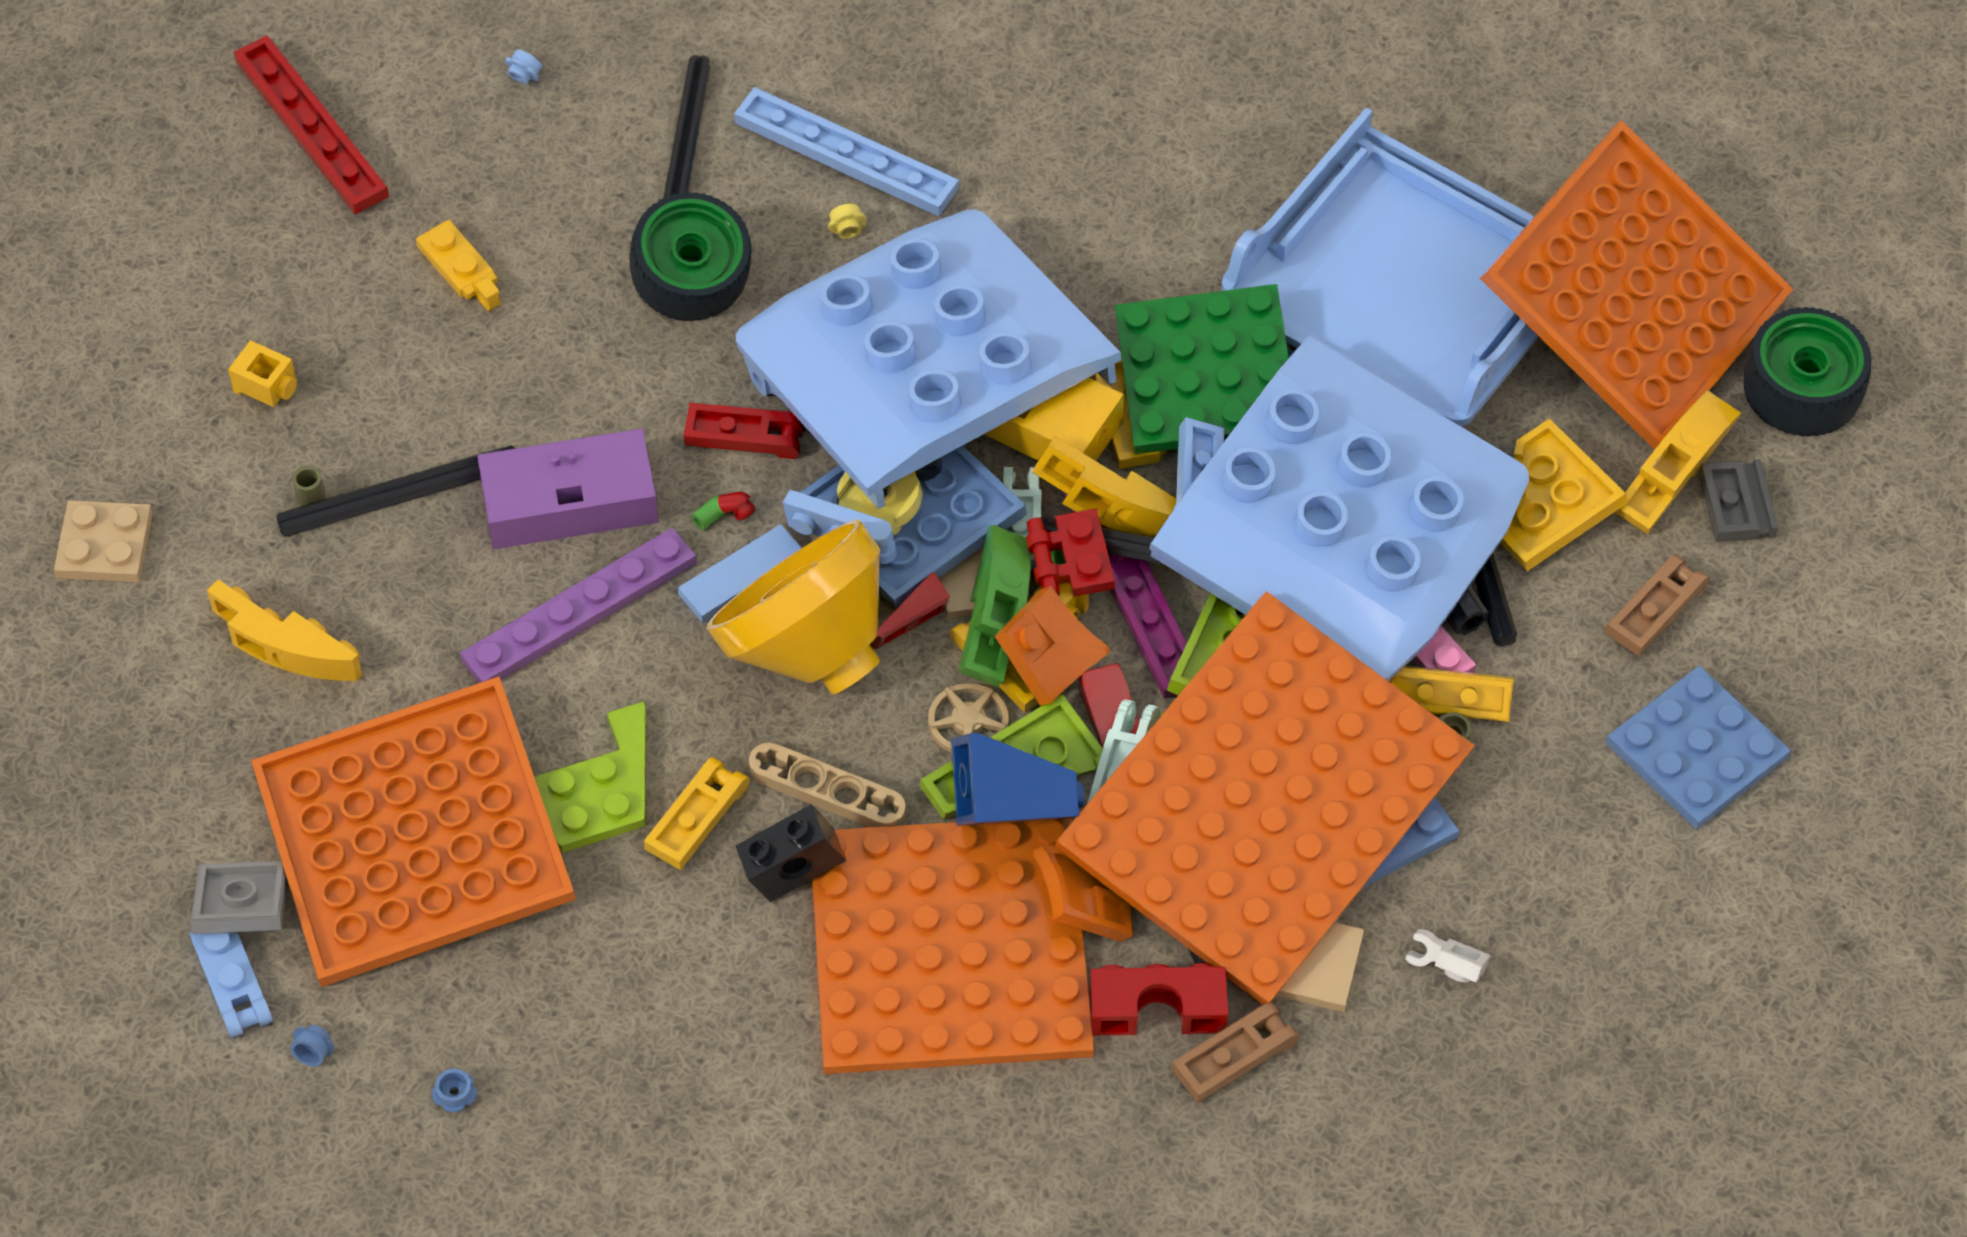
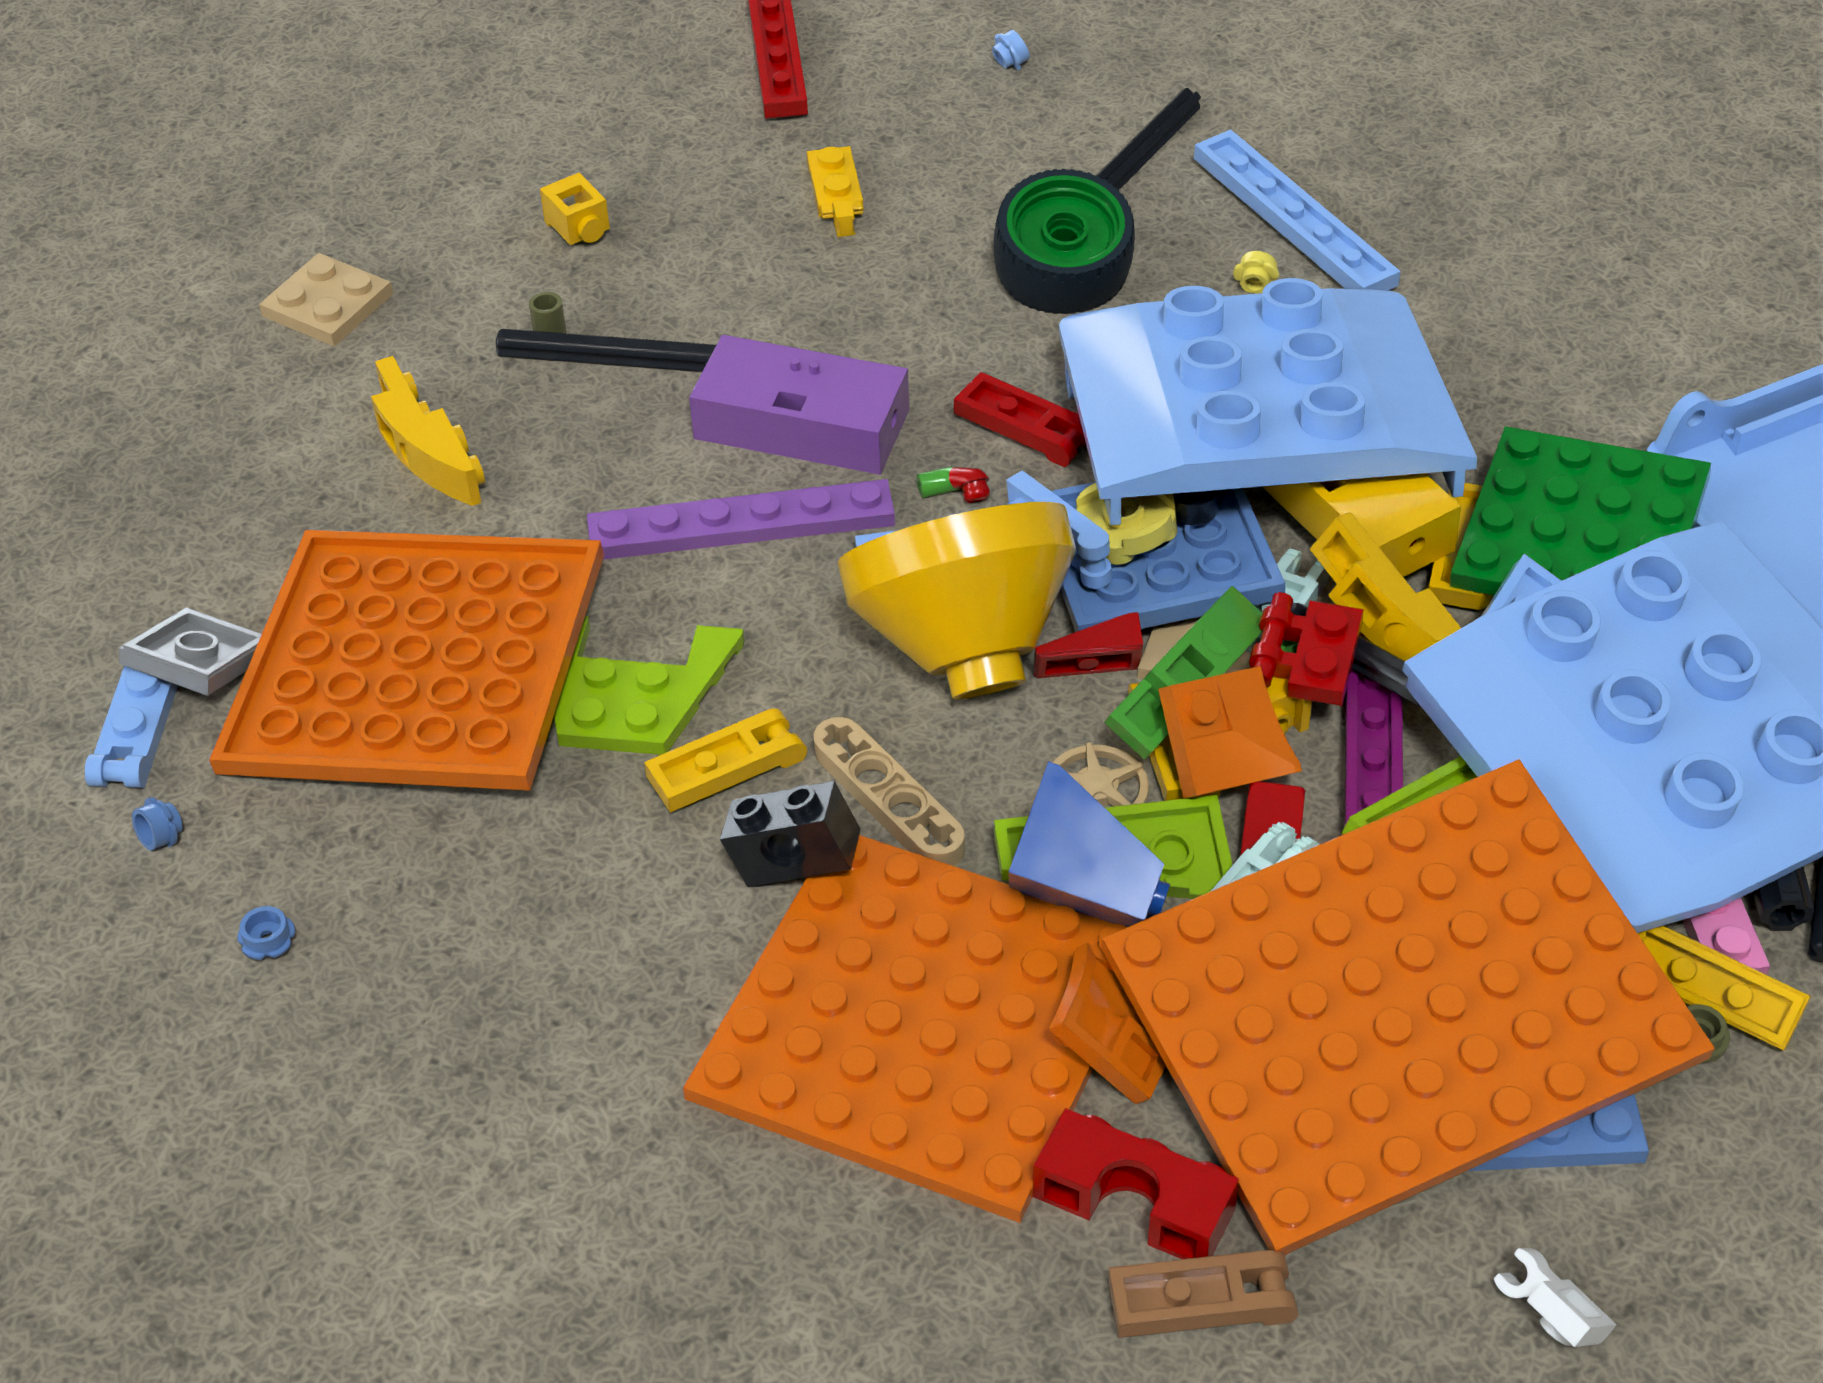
camera: 30 degrees right, 10 degrees down
(1328, 970) = (1382, 1249): tan tile -> none

